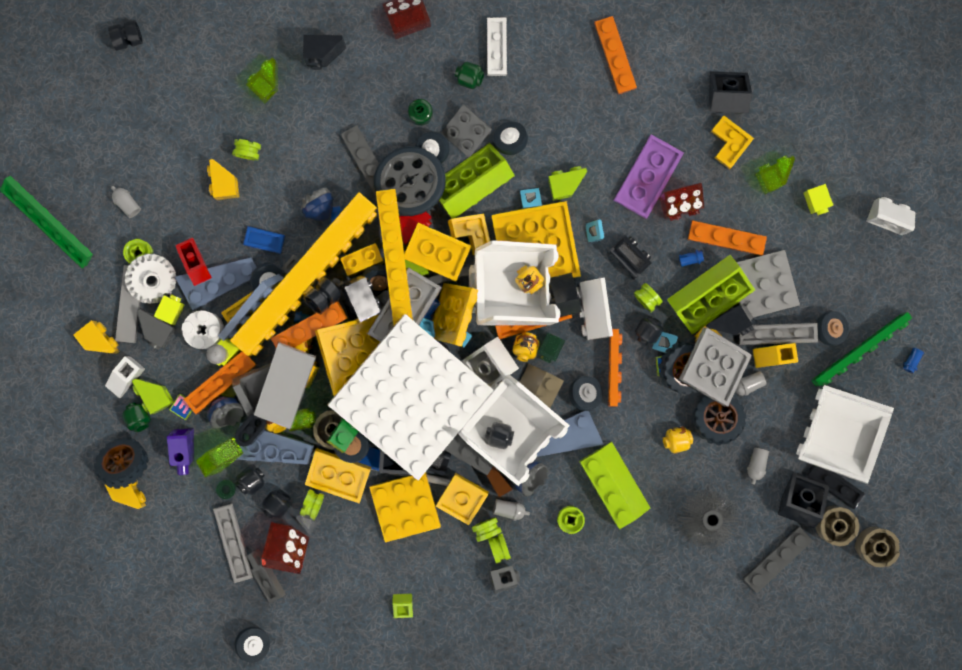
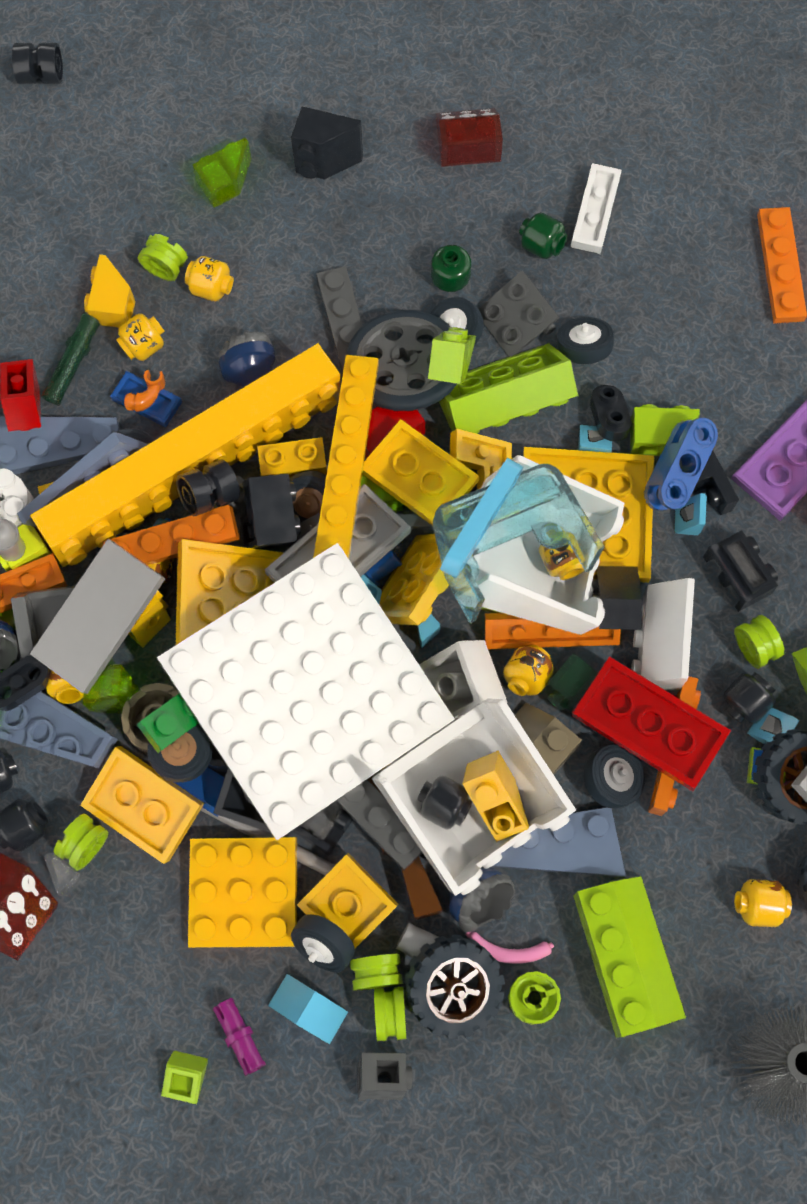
camera: 20 degrees right, 15 degrees down
(212, 227) = (76, 349): none -> clear green pin
(249, 204) = (140, 337): none -> yellow head
(265, 243) = (145, 399): none -> orange arm
(278, 155) = (208, 278): none -> yellow head
(424, 579) = (239, 1036): none -> magenta pin
(437, 177) = (451, 355): none -> lime slope
(455, 523) = (322, 943): none -> black wheel
(455, 556) = (308, 1009): none -> medium azure slope
(482, 288) = (481, 518): none -> medium azure beam
(505, 262) = (538, 504): none -> clear light blue windscreen
(525, 425) = (495, 795): none -> yellow slope
(535, 178) = (609, 405): none -> black plate
(539, 538) = (468, 1016): none -> black wheel
(552, 501) = (514, 956): none -> bright pink piece
(587, 192) = (693, 444): none -> blue piece
(598, 362) = (651, 723): none -> red plate
(599, 203) = (719, 489): none -> black slope

